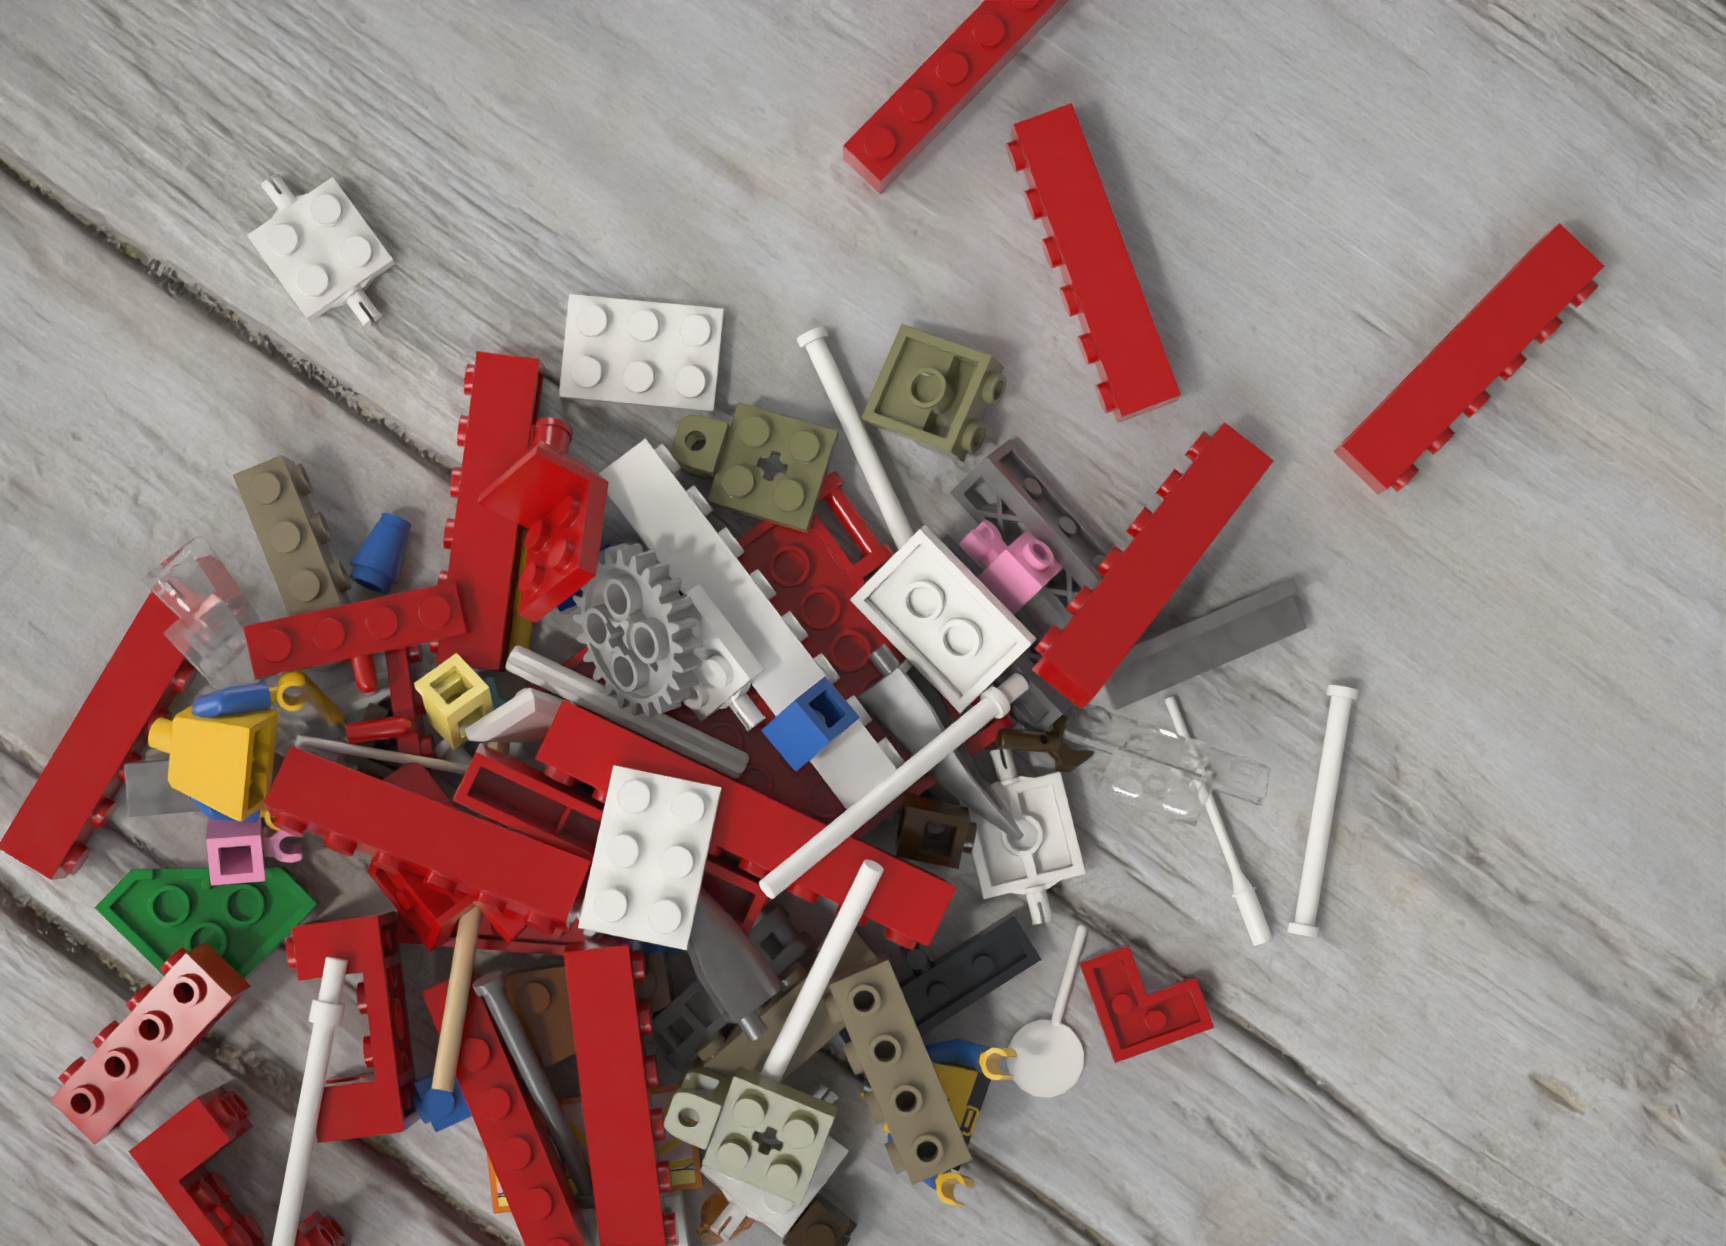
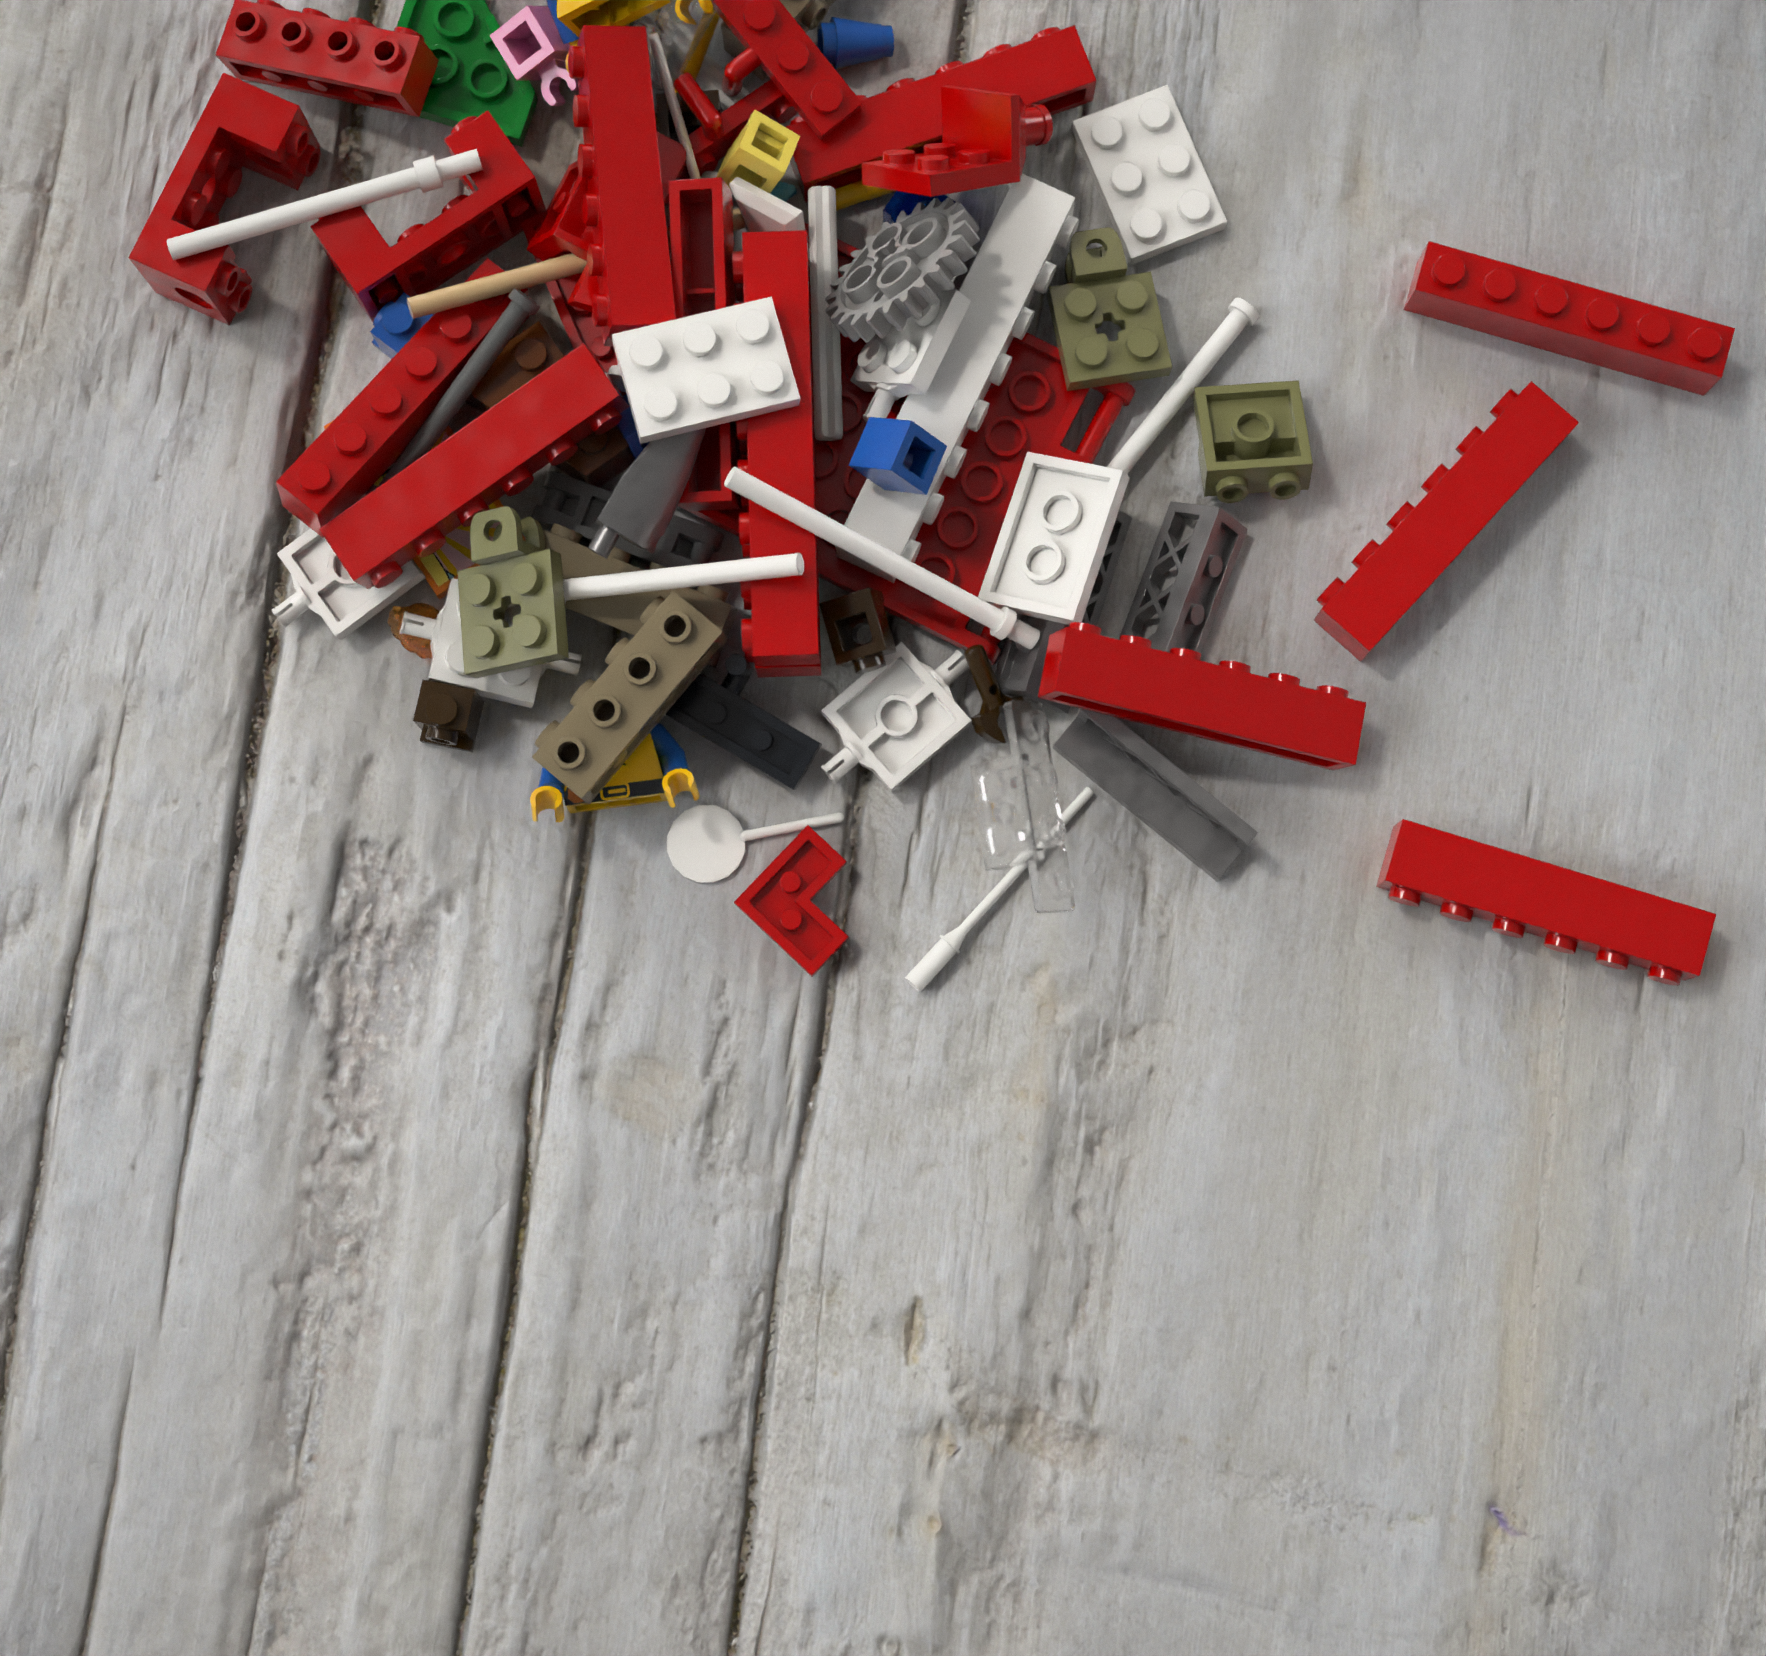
camera: 65 degrees right, 5 degrees down
(915, 715) = (959, 553): flat silver piece -> none
(1012, 571) = (1129, 585): bright pink brick -> none
(1323, 811) = (1061, 978): white bar -> none

